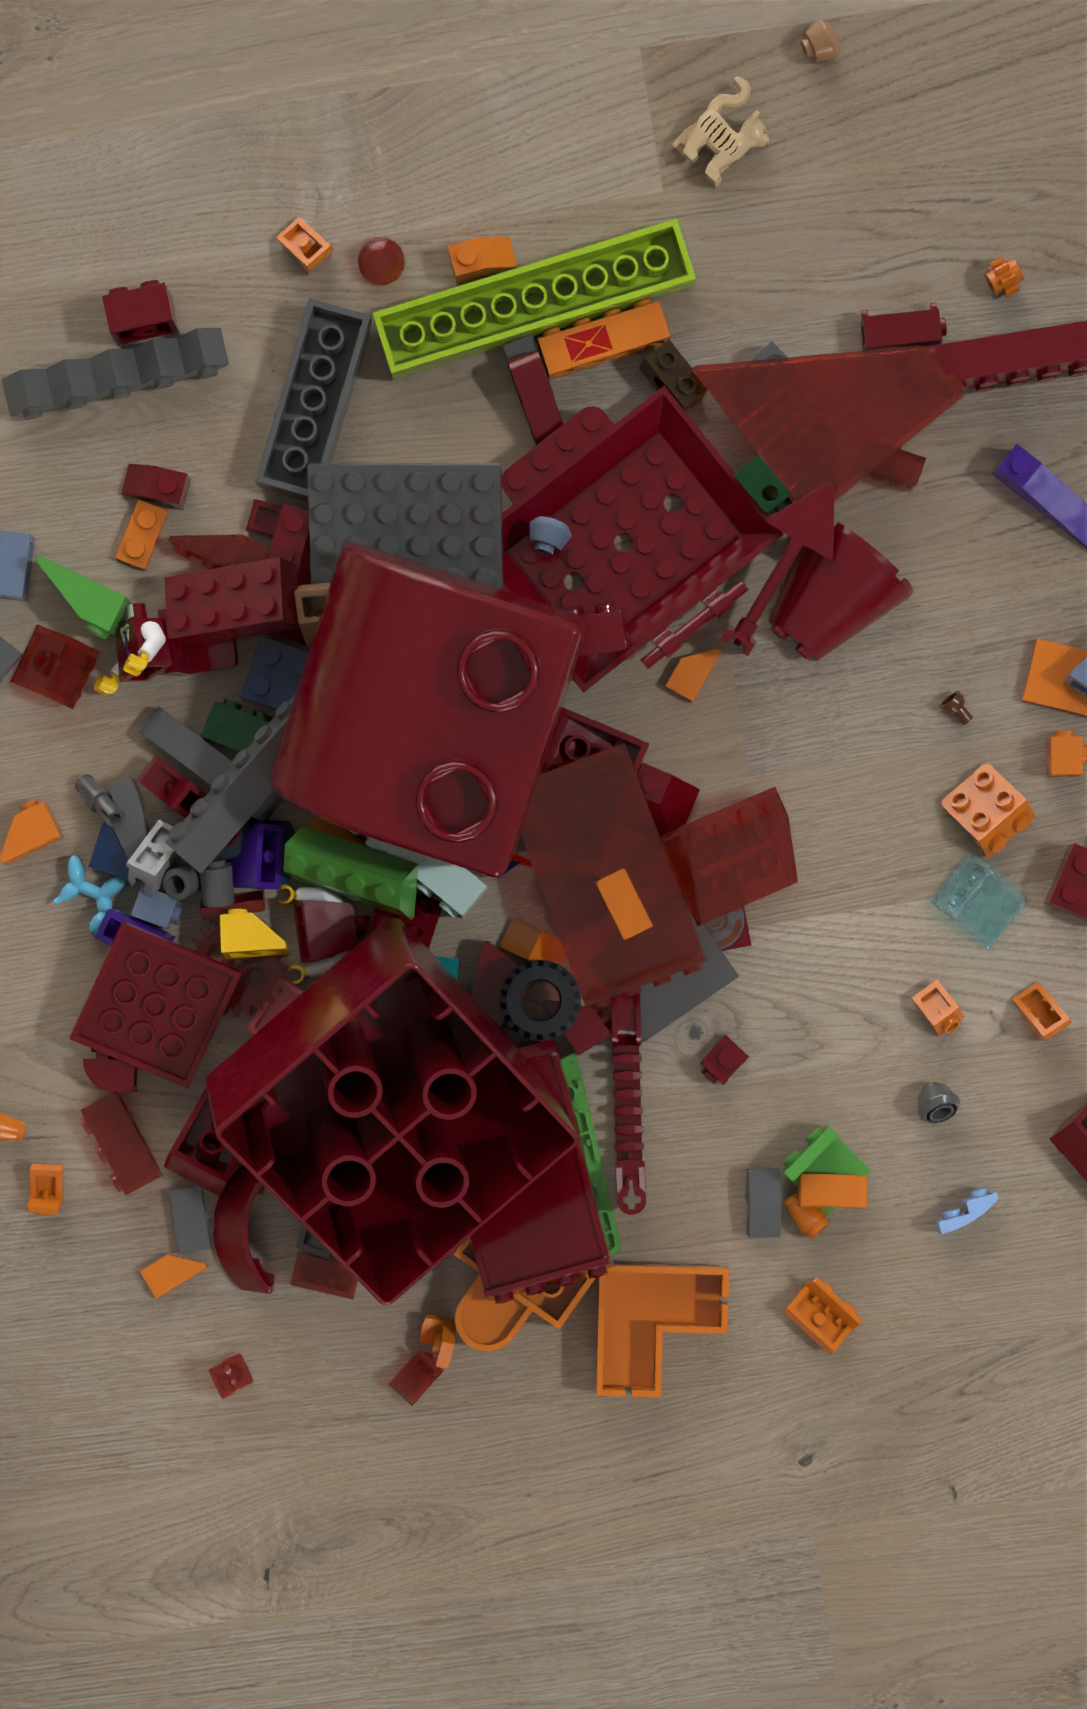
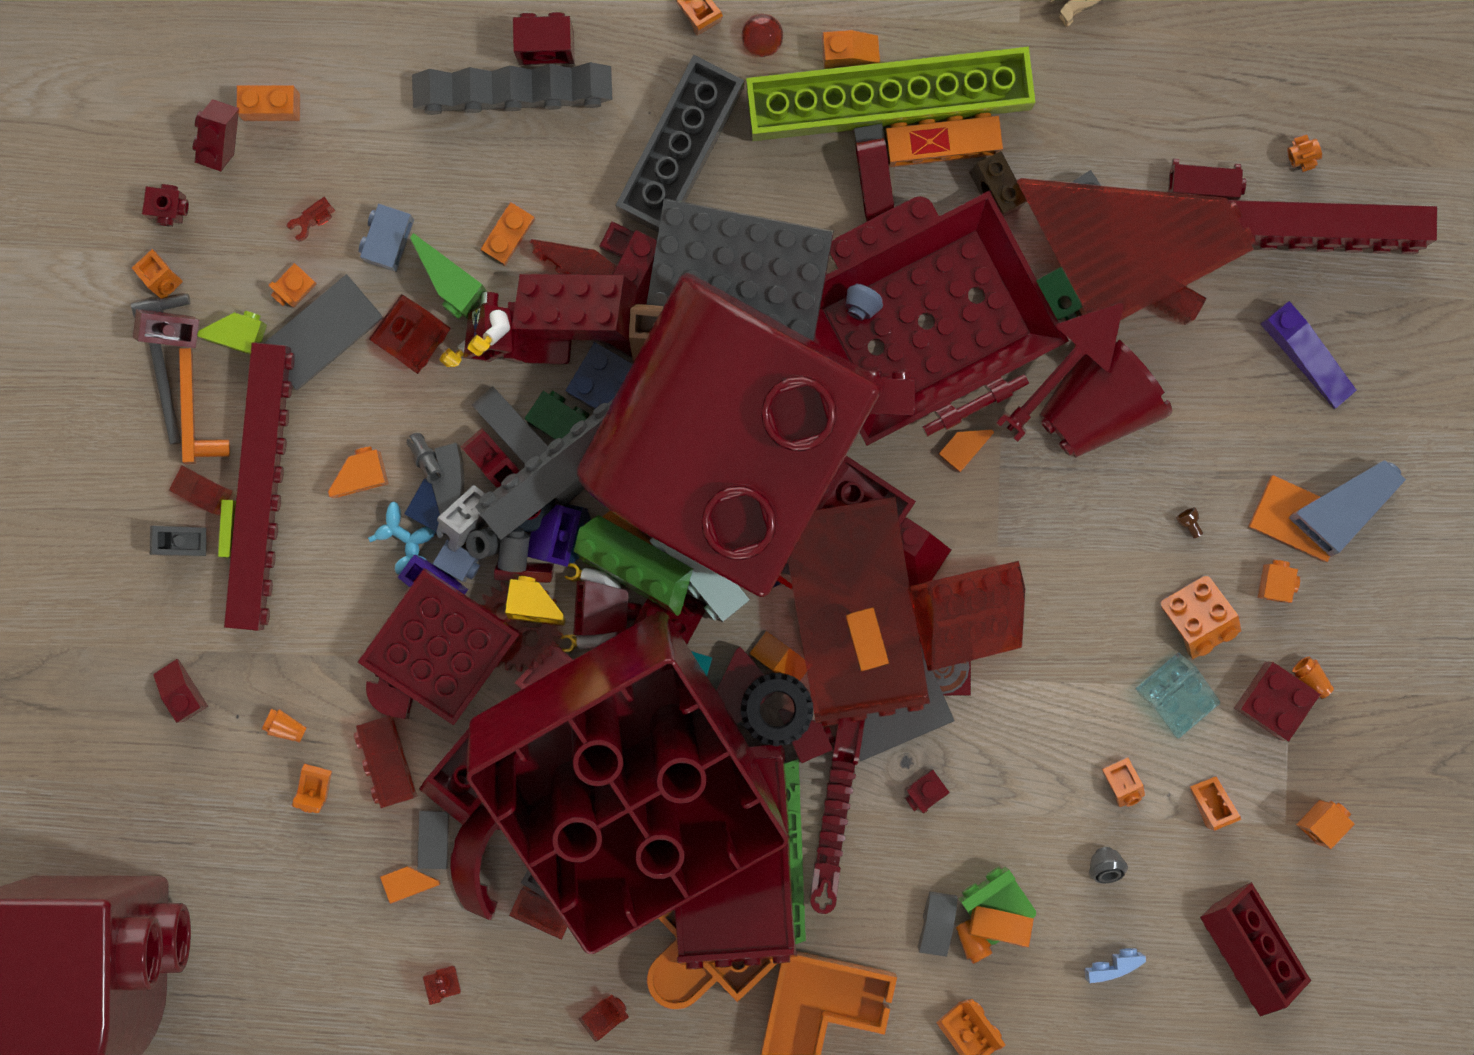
camera: 15 degrees right, 0 degrees up
(156, 485) = (529, 193): dark red slope -> none
(441, 1335) = (633, 985): orange bracket -> none

